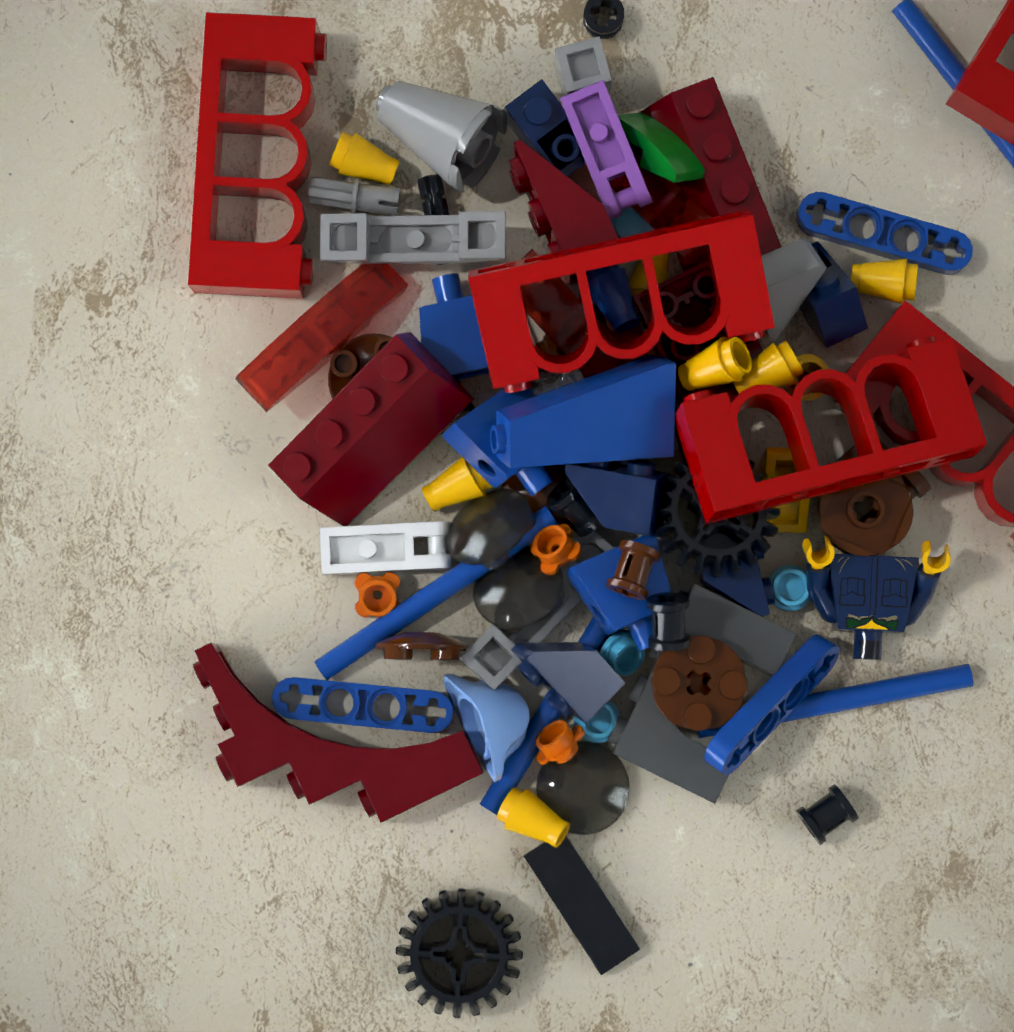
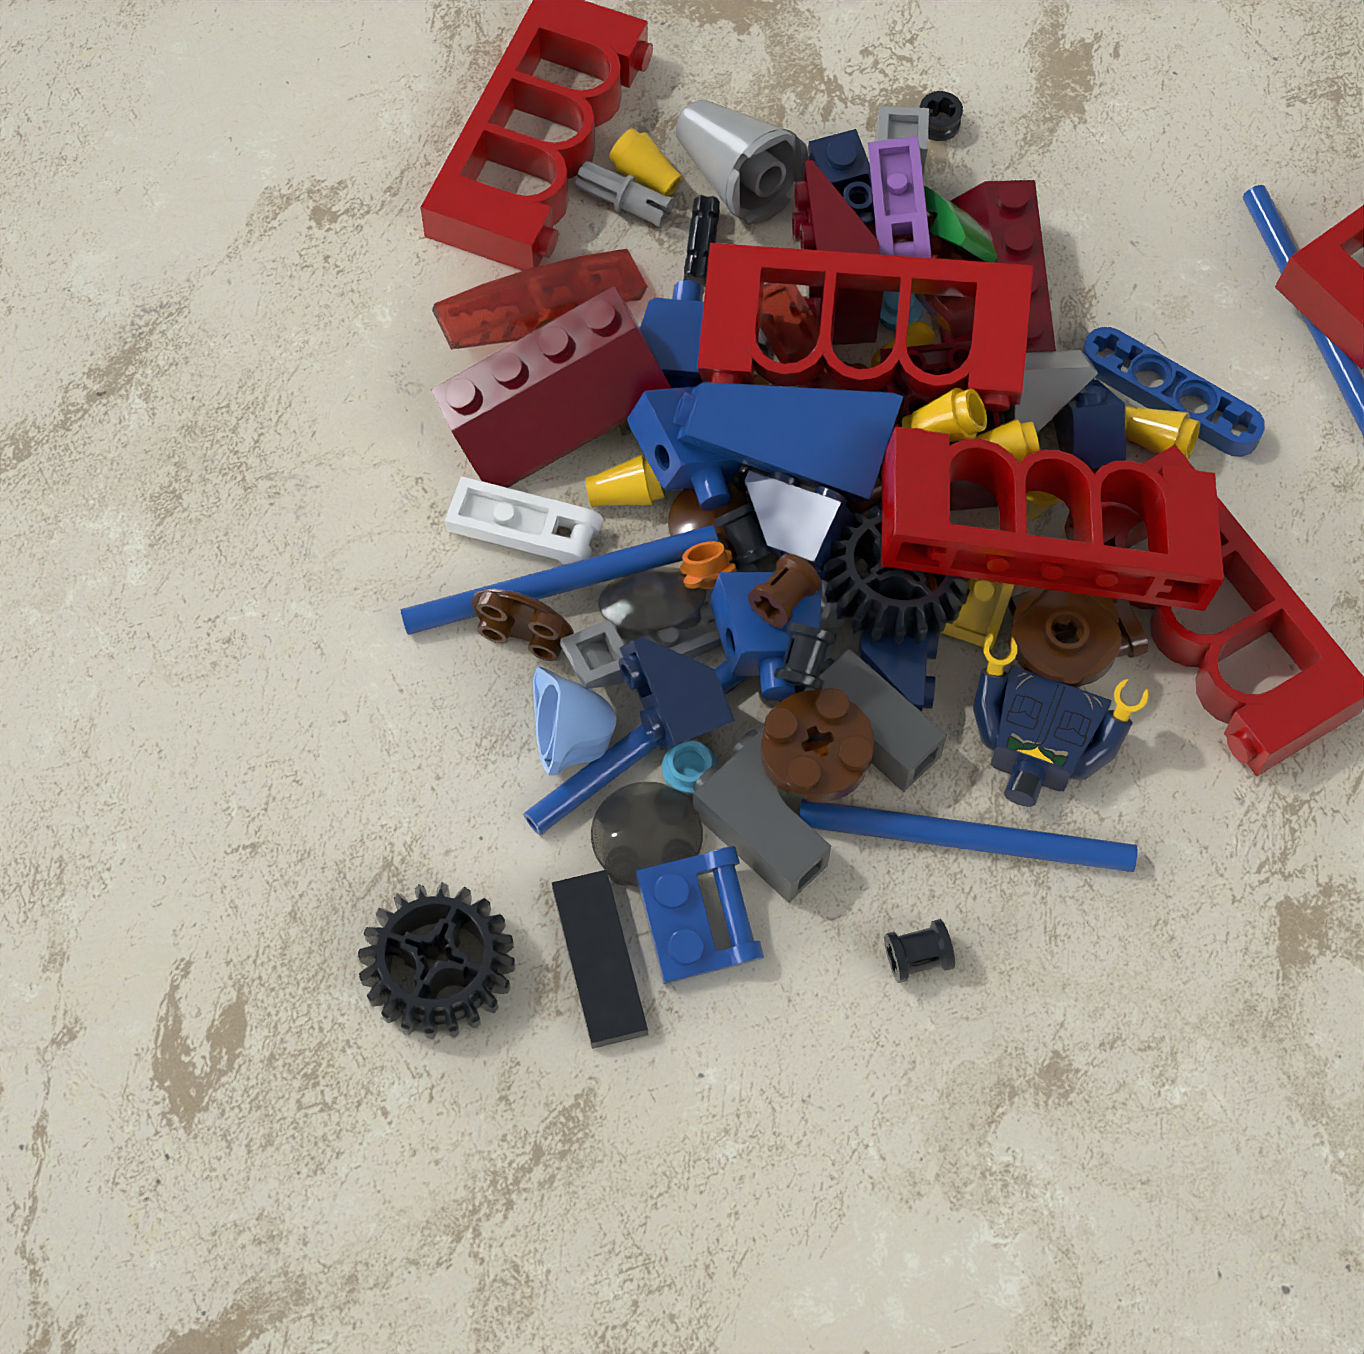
camera: 15 degrees right, 20 degrees down
(265, 741) = (431, 747): dark red arch -> none
(363, 701) = (431, 678): blue beam -> none
(367, 585) = (489, 551): orange plate -> none
(413, 239) = (654, 238): light grey slope -> none
(490, 528) = (642, 525): clear smoke dish -> none
(531, 817) = (574, 838): yellow cone -> none
(558, 742) = (636, 769): orange plate -> none
(613, 296) = (857, 338): blue cone -> none
(622, 653) = (746, 704): medium azure plate -> none
(635, 853) = (680, 918): none -> blue plate
(771, 704) = (837, 816): blue beam -> none
(790, 587) = (954, 701): medium azure plate -> none

